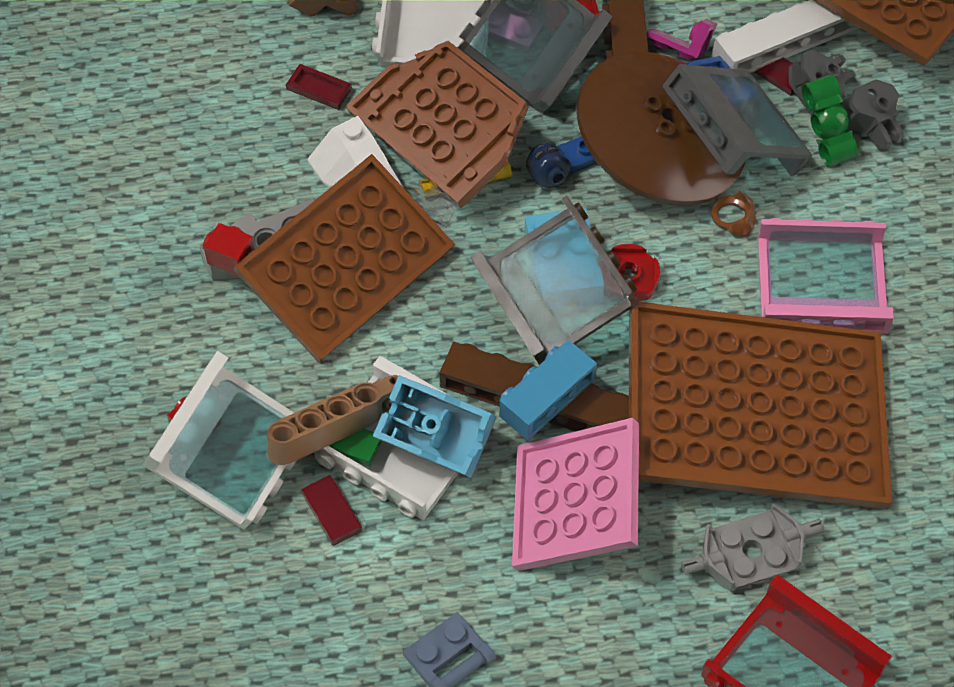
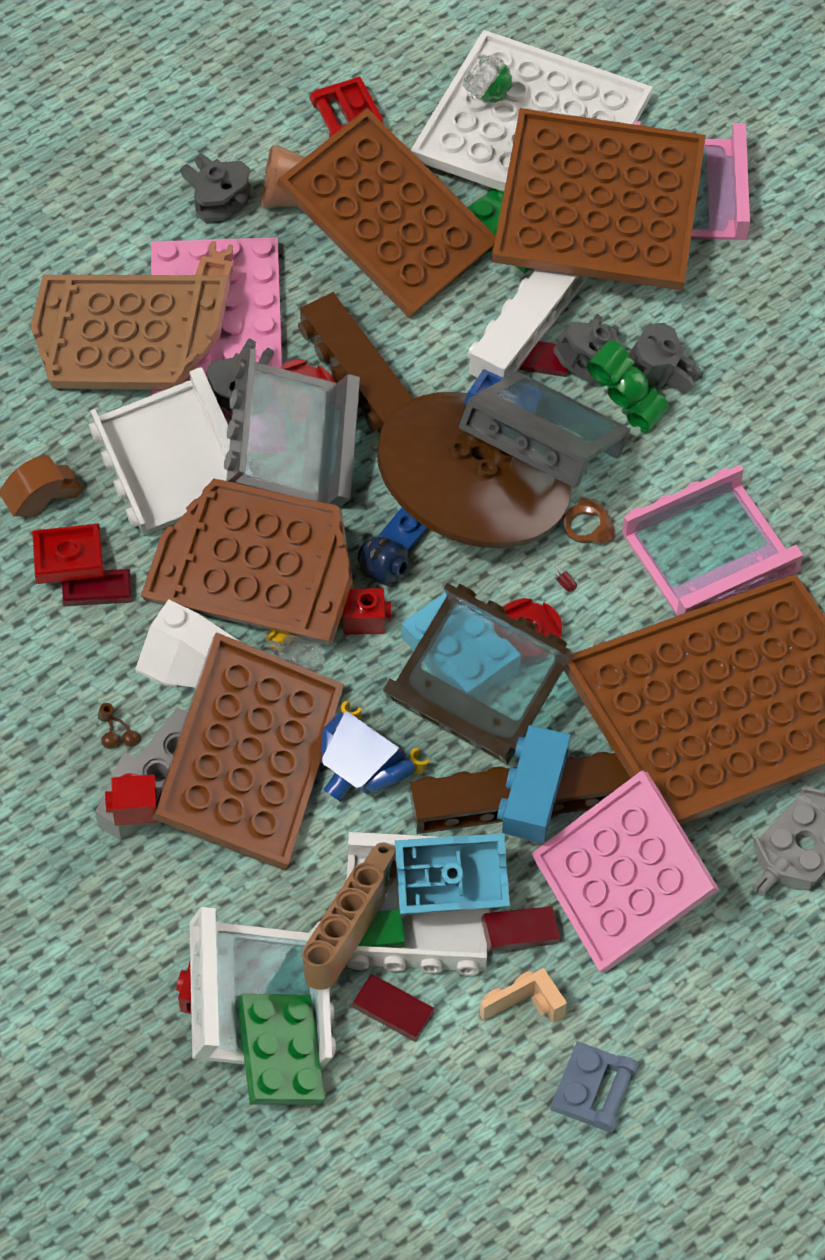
camera: 30 degrees left, 0 degrees up
(218, 495) = (280, 1049): none -> green plate
(254, 202) = (110, 739): none -> reddish brown piece
(312, 51) = (67, 553): none -> red plate
(432, 306) = (363, 756): none -> torso
(443, 547) = (545, 999): none -> light nougat bracket
(470, 500) = (520, 928): none -> dark red tile
(507, 197) = (366, 612): none -> red brick
(687, 250) = (565, 580): none -> dark red piece
(700, 36) = (440, 376): dark pink bracket -> none

